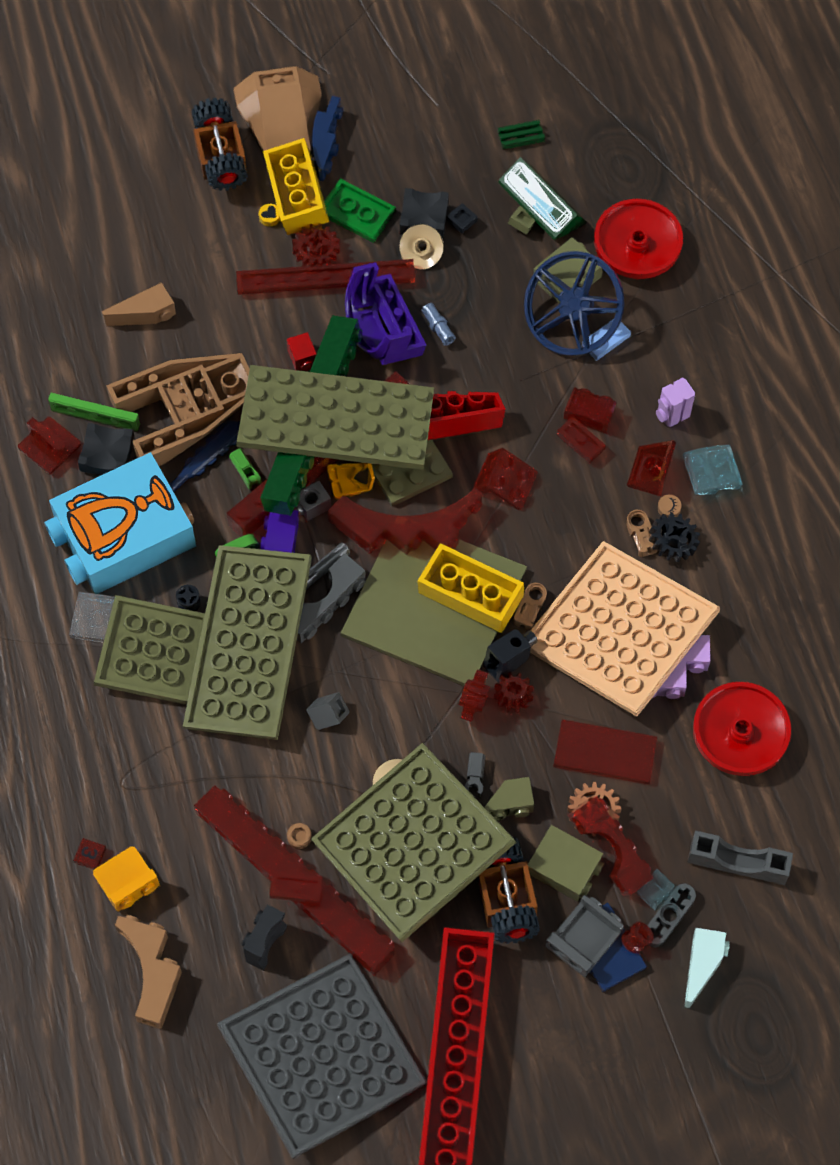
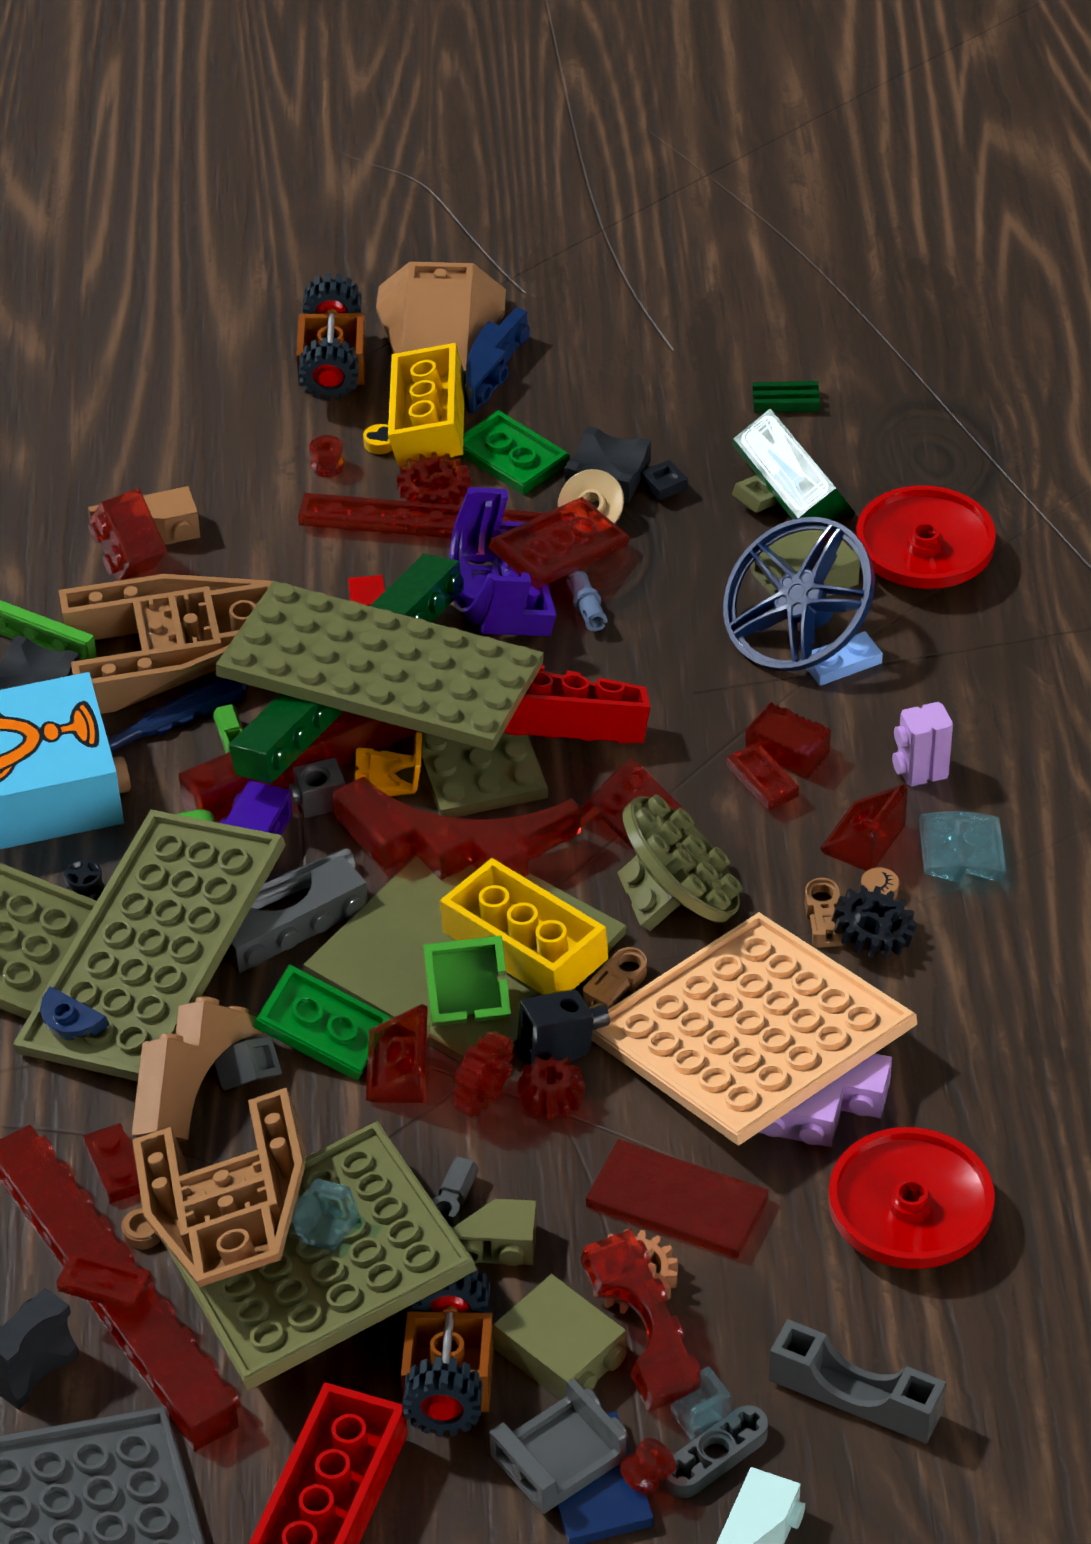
camera: 15 degrees right, 20 degrees down
(137, 333) = (127, 535): none -> clear red brick
(213, 704) = (69, 1017): none -> dark blue plate
(240, 242) = (326, 456): none -> clear red wheel
(269, 794) = (113, 1162): none -> clear red plate
(293, 726) = (178, 1063): none -> medium nougat arch
(361, 830) = (231, 1211): none -> medium nougat wedge
(366, 674) = (320, 1021): none -> green tile
(412, 286) = (559, 542): none -> clear red tile
(415, 821) = (325, 1214): none -> clear light blue panel
(419, 691) = (399, 1058): none -> clear red slope
(446, 633) = (465, 981): none -> bright green piece
(549, 523) = (674, 866): none -> olive bracket

